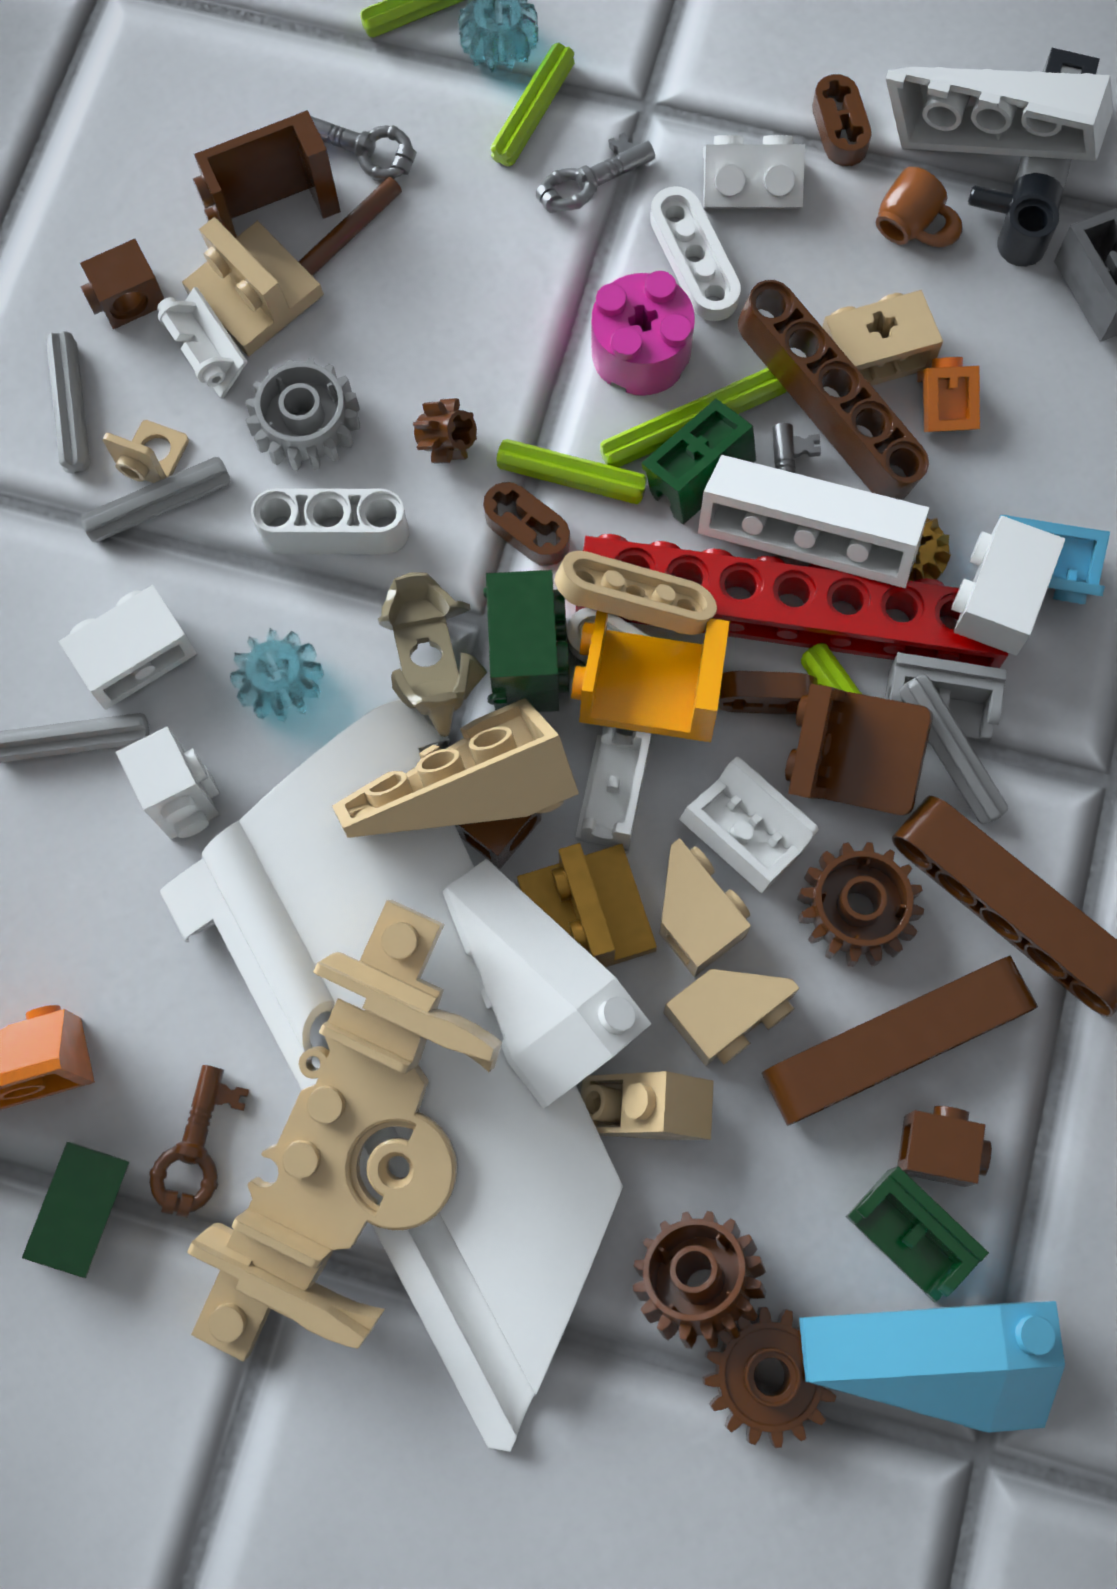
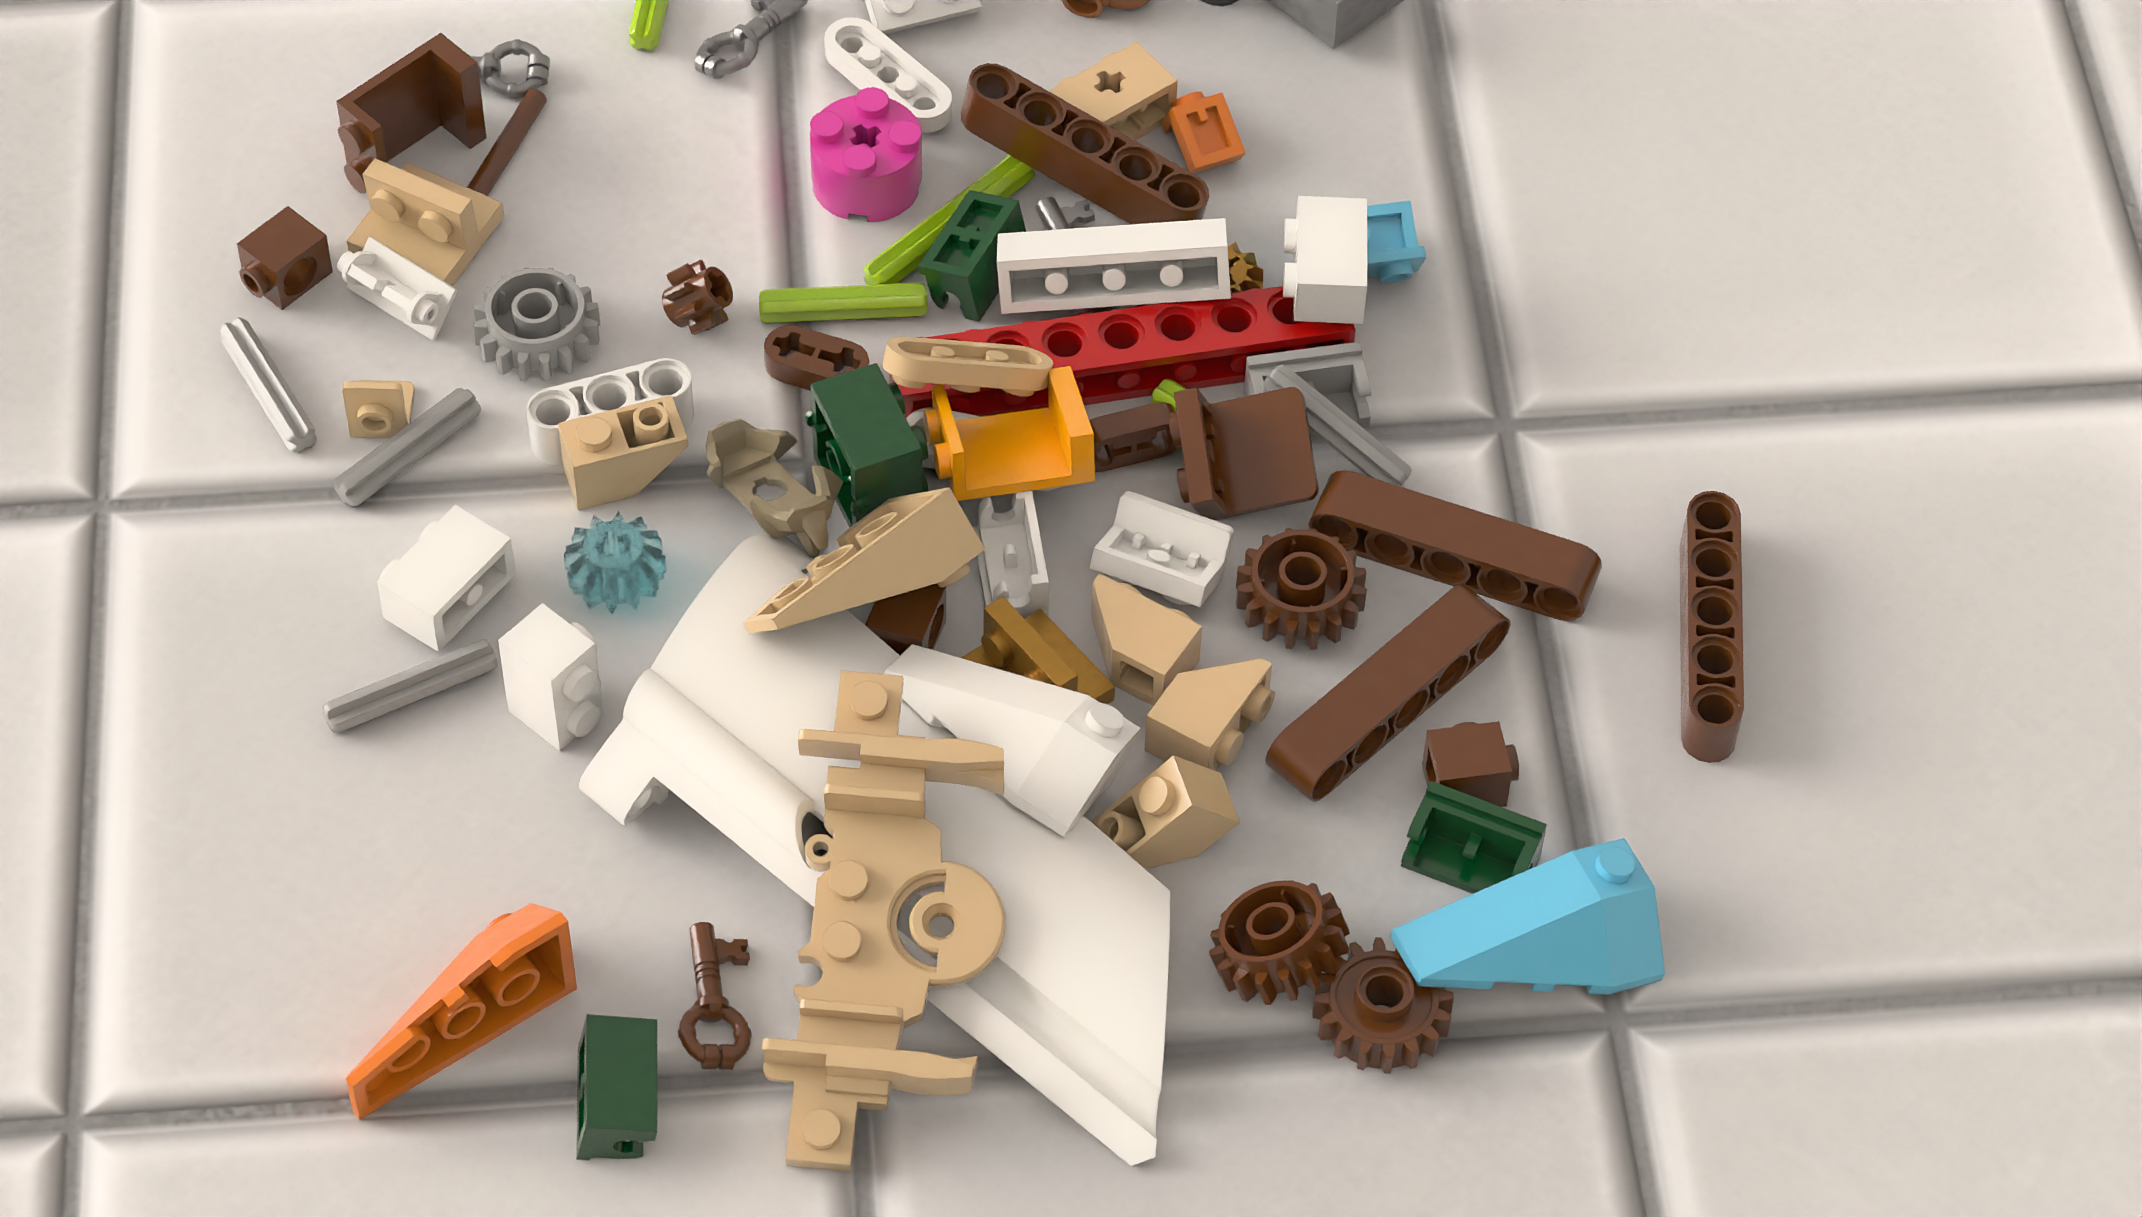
camera: 25 degrees left, 20 degrees down
(319, 565) = (620, 450): none -> tan slope

